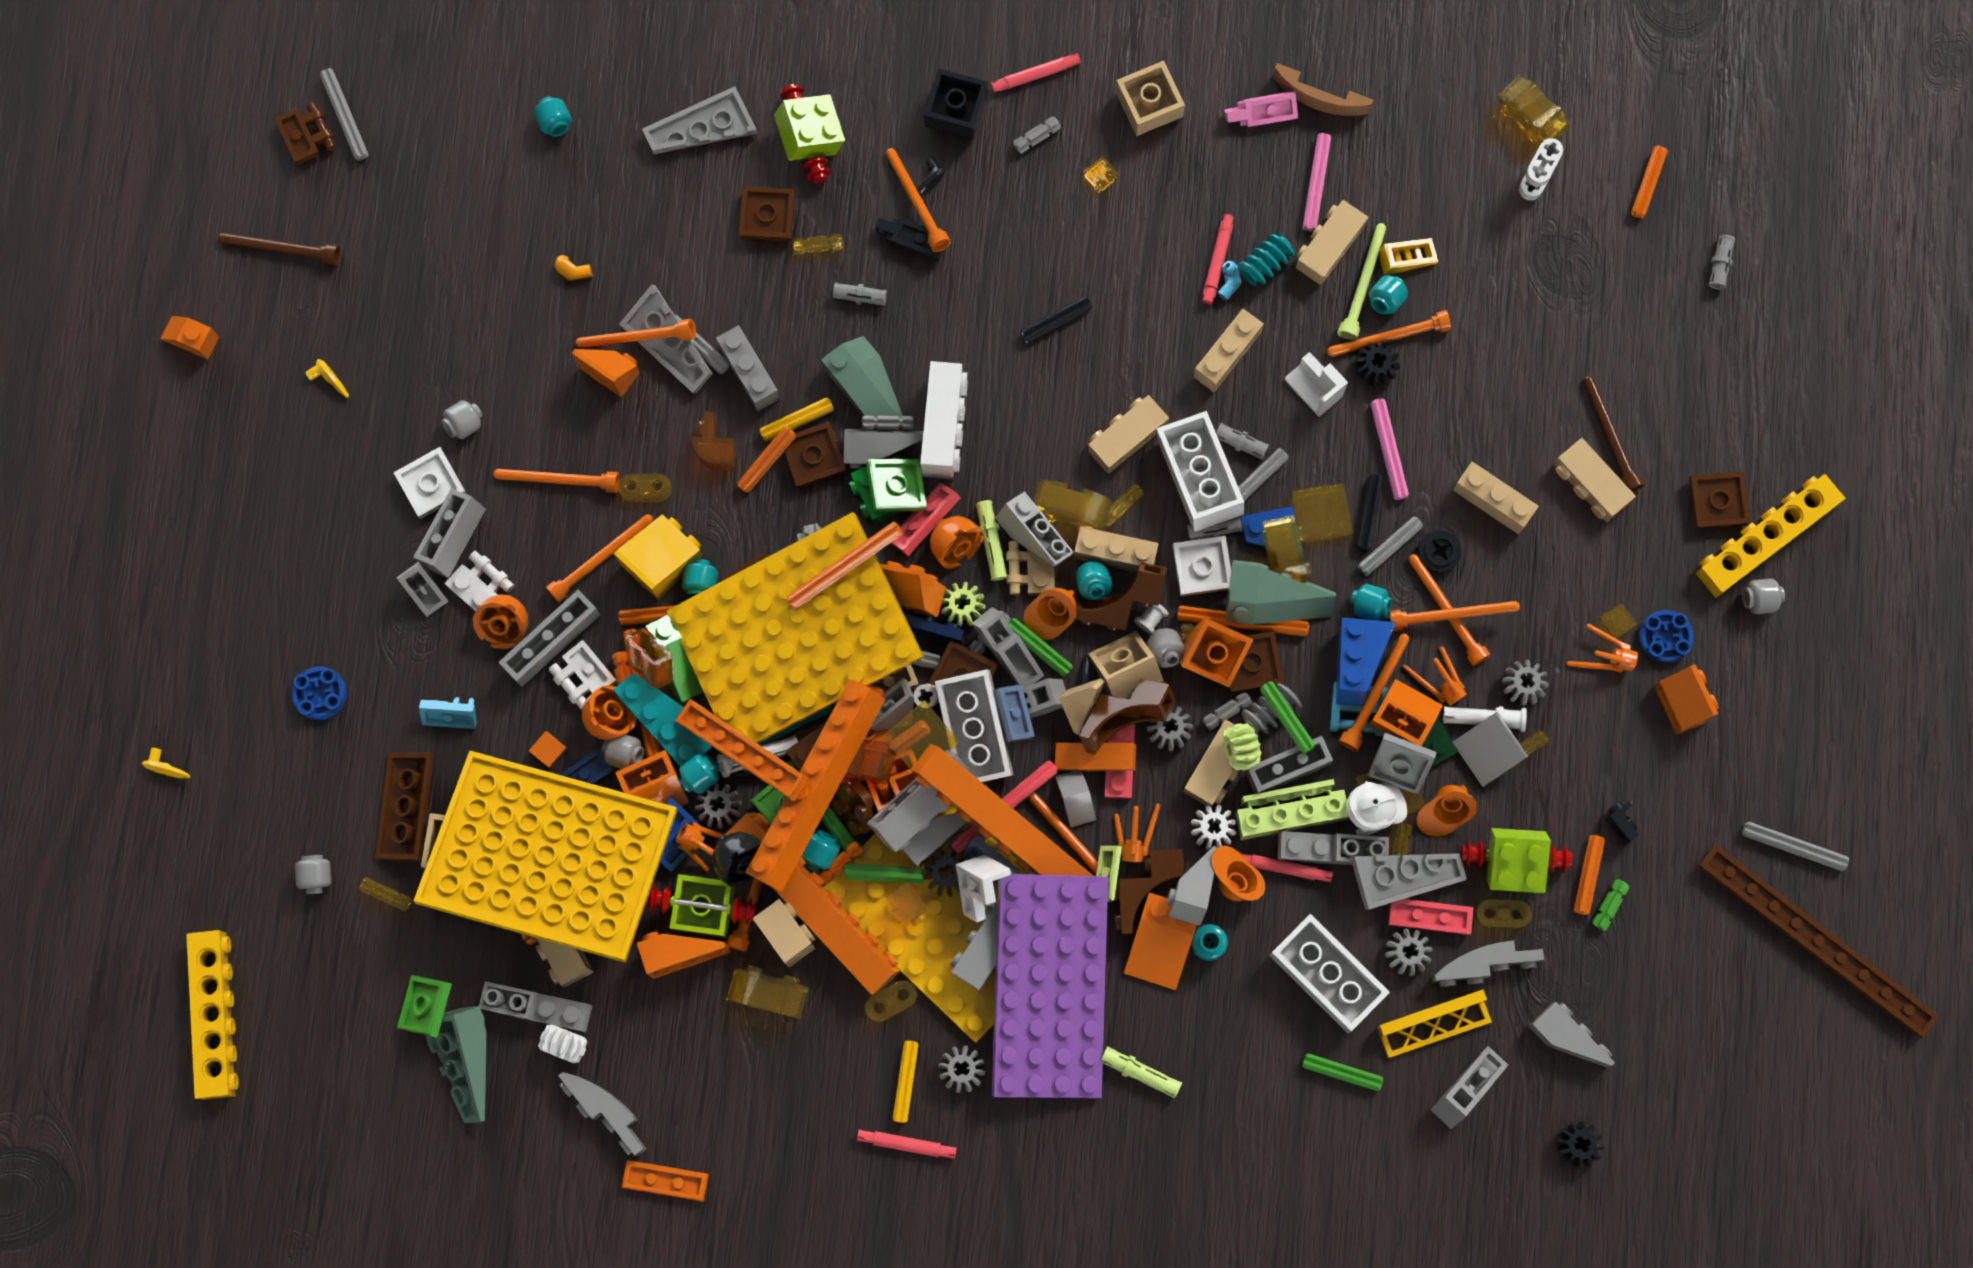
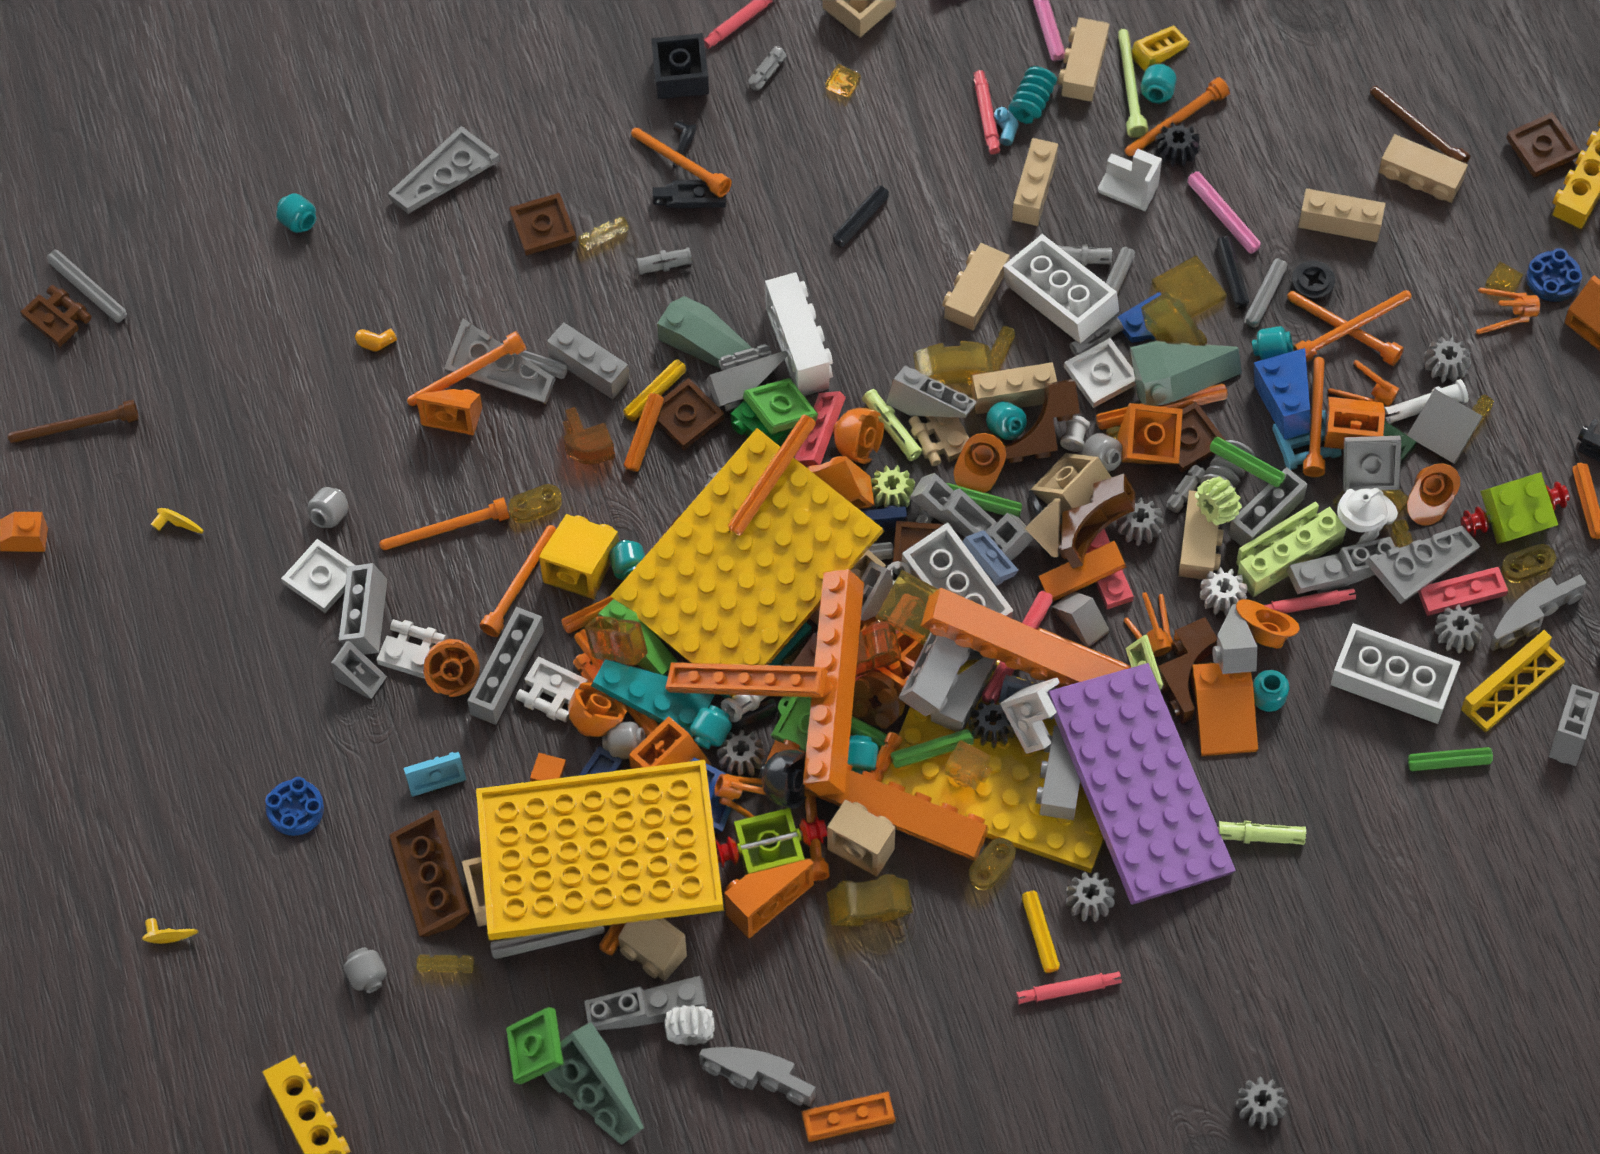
camera: 25 degrees left, 15 degrees down
(809, 130) = (551, 136): brick -> none

